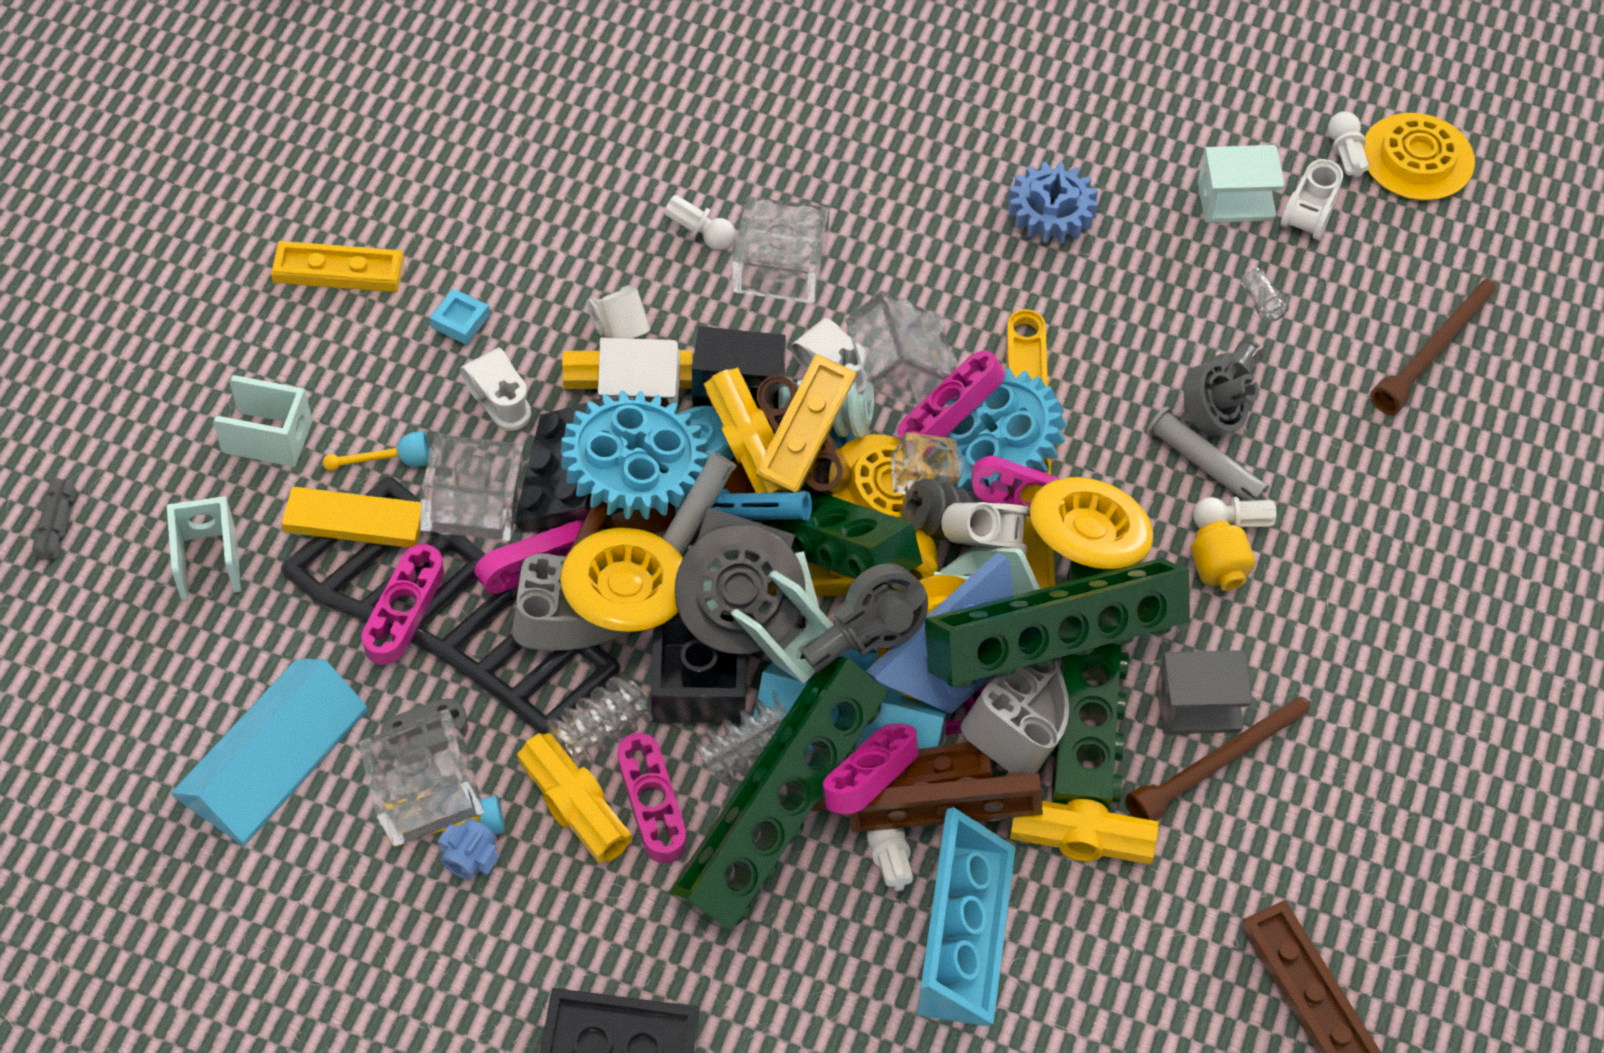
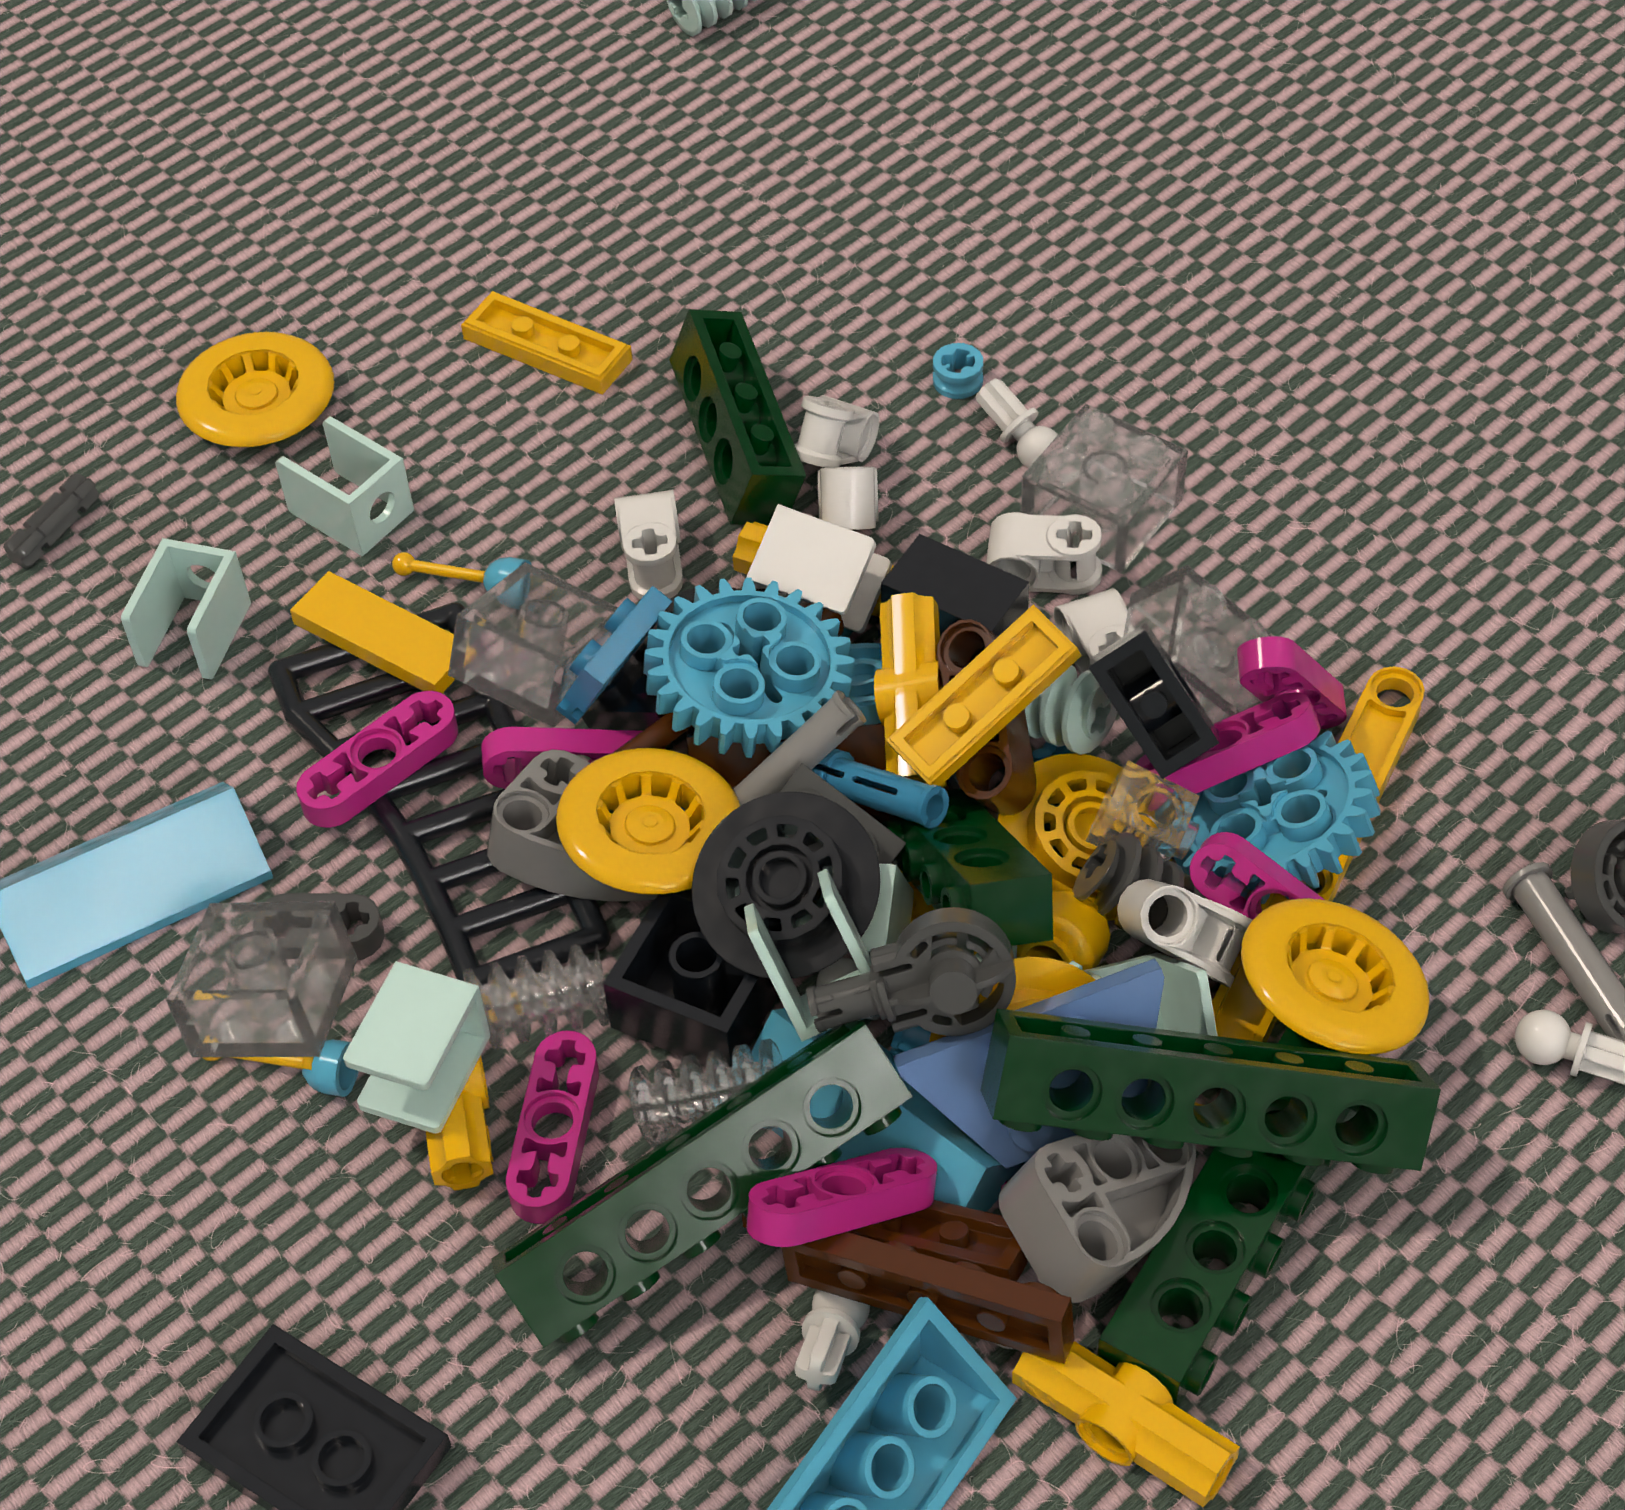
camera: 30 degrees right, 5 degrees down
(151, 383) = (269, 385): none -> yellow wheel
(459, 316) = (653, 442): medium azure plate -> none
(468, 849) = (276, 1097): medium blue gear -> none
(513, 280) = (736, 416): none -> dark green brick
(537, 476) = (600, 664): none -> dark azure plate
(558, 780) = (418, 1046): none -> light aqua piece
(583, 270) = (835, 432): none -> white piece
(634, 185) = (958, 357): none -> medium azure bush
(761, 307) = (1043, 549): none -> white piece
(908, 387) = (1154, 700): none -> black brick
(968, 338) = (1280, 666): none -> dark pink beam
(1073, 205) = (1515, 544): medium blue gear -> none
(1152, 800) = (1248, 1413): reddish brown piece -> none
(1203, 691) = (1403, 1284): dark grey piece -> none
(1222, 555) = (1529, 1099): yellow head -> none

